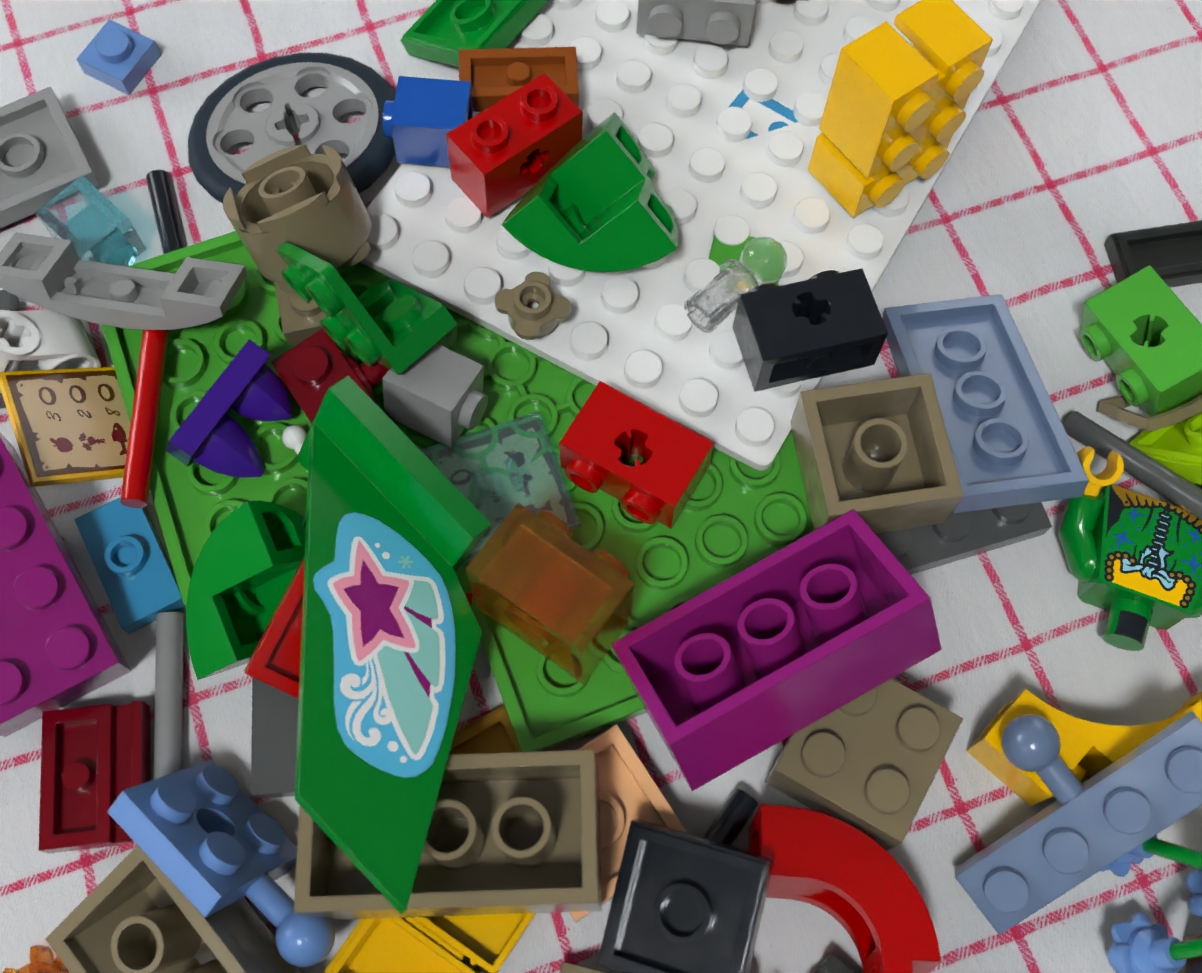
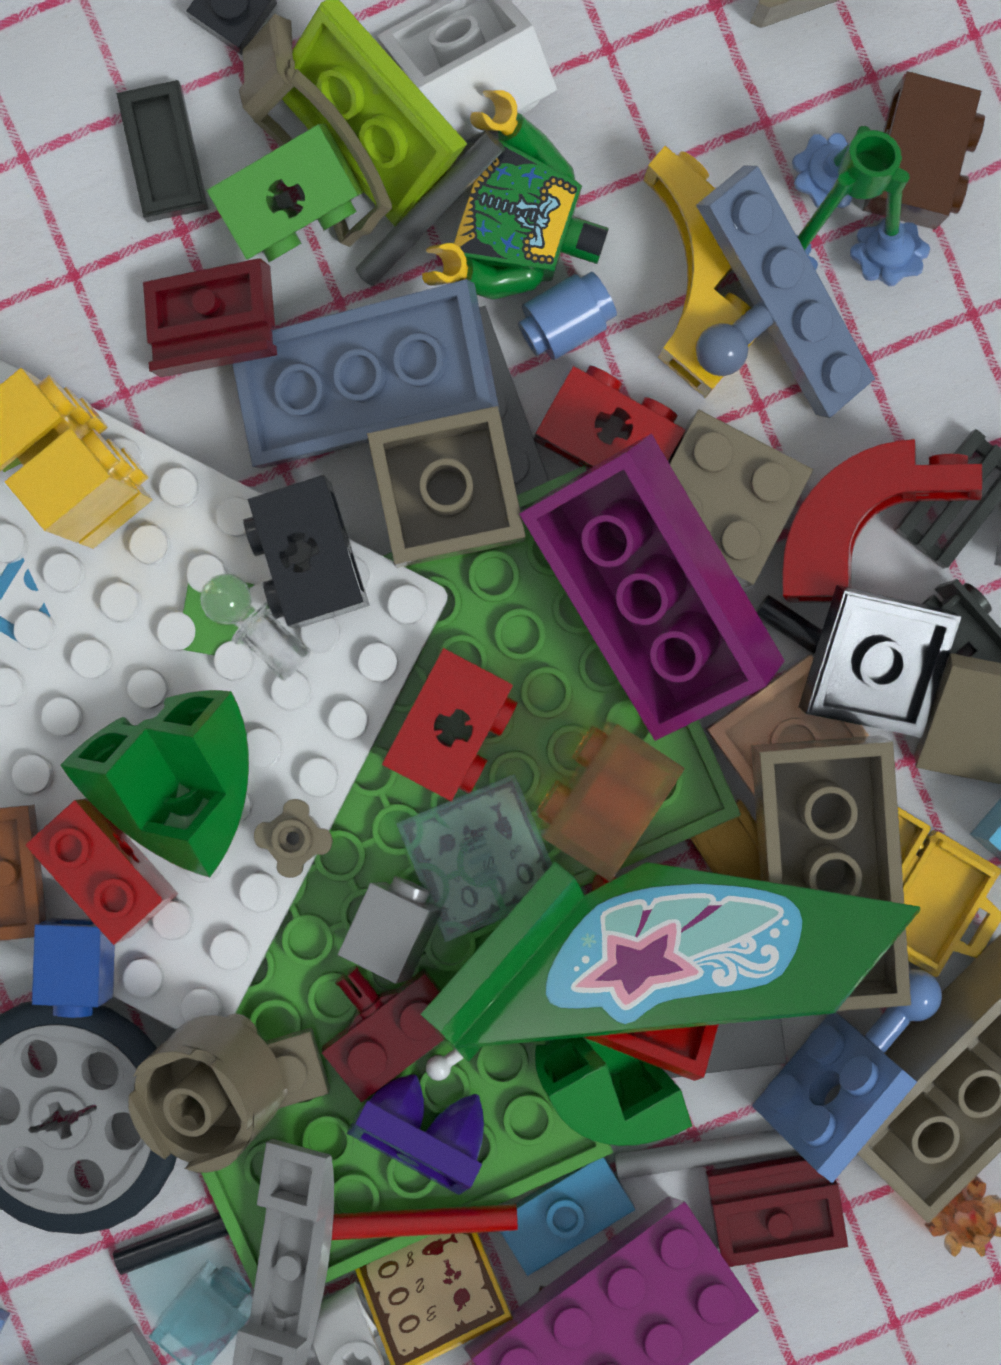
camera: 95 degrees left, 20 degrees up
(381, 326) = (326, 992): green bracket -> none
(963, 625) = (594, 396): none -> red brick
(1025, 277) = (210, 317): none -> dark red plate
(1047, 602) = (566, 315): none -> medium blue brick

